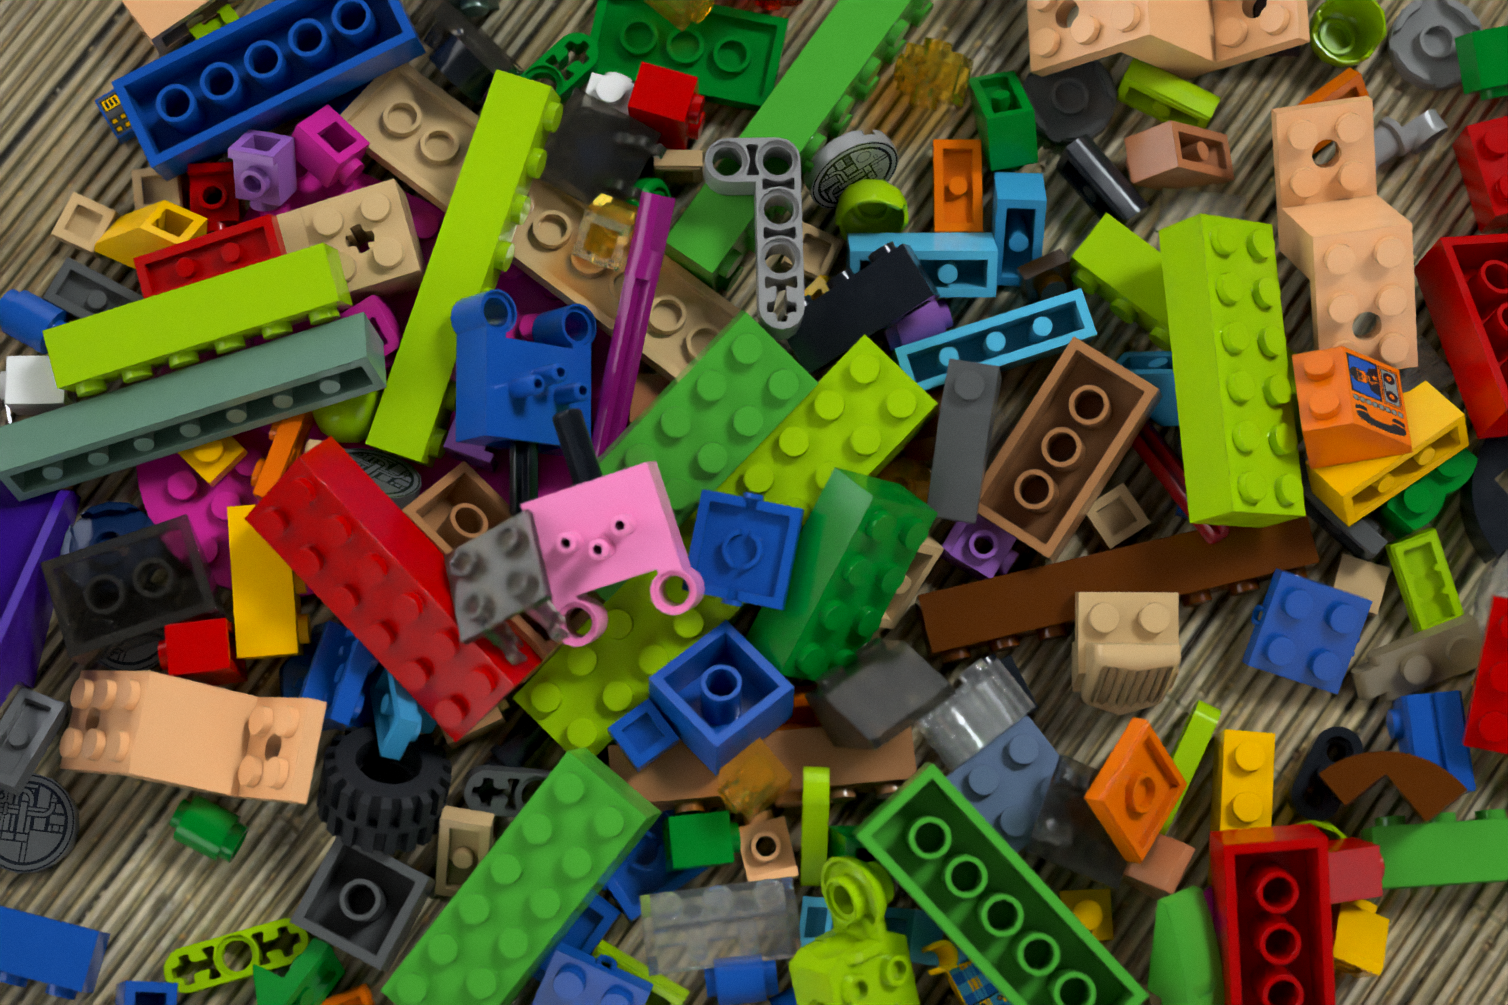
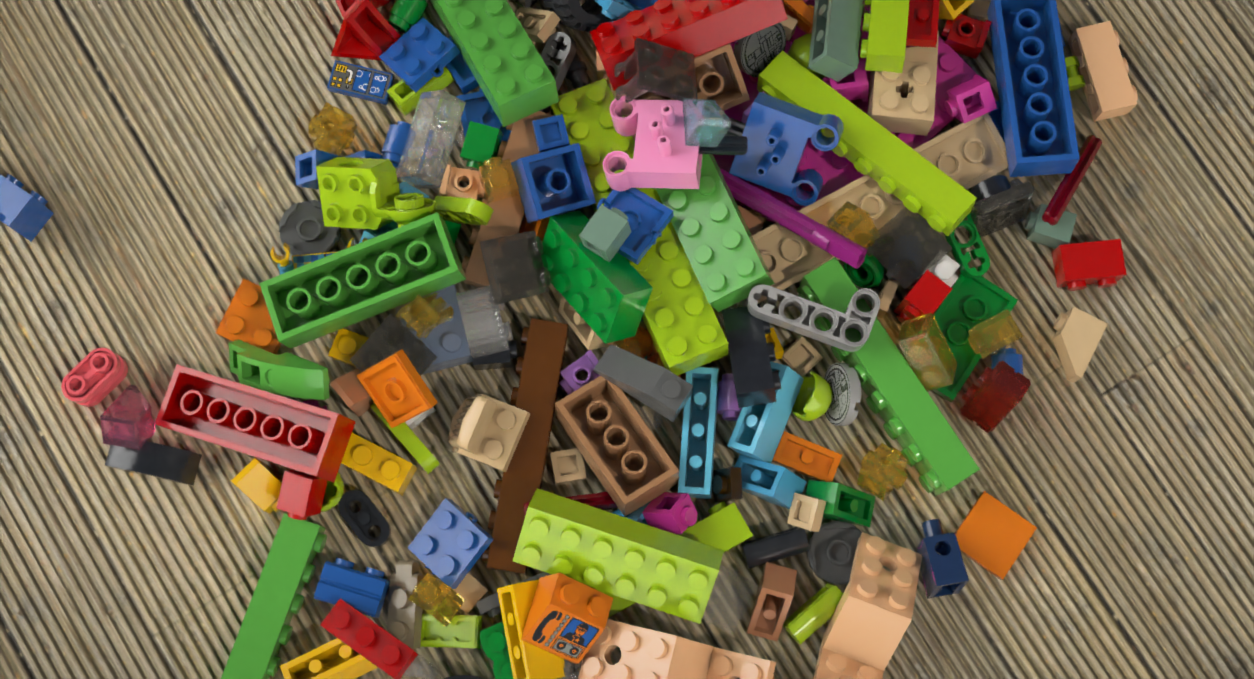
camera: 110 degrees right, 0 degrees up
(264, 168) = (971, 58): medium lavender brick -> none
(559, 480) = (704, 122): none -> clear light blue slope
(747, 64) = (927, 352): none -> clear yellow brick
(783, 565) = (606, 232): none -> sand green brick
(1016, 795) = (425, 314): none -> clear yellow arm
(1041, 151) = (806, 512): none -> tan tile
(1130, 332) = (671, 512): none -> dark pink brick
(1398, 612) = (436, 599): none -> clear yellow brick
(1419, 781) = (333, 558): reddish brown brick -> none

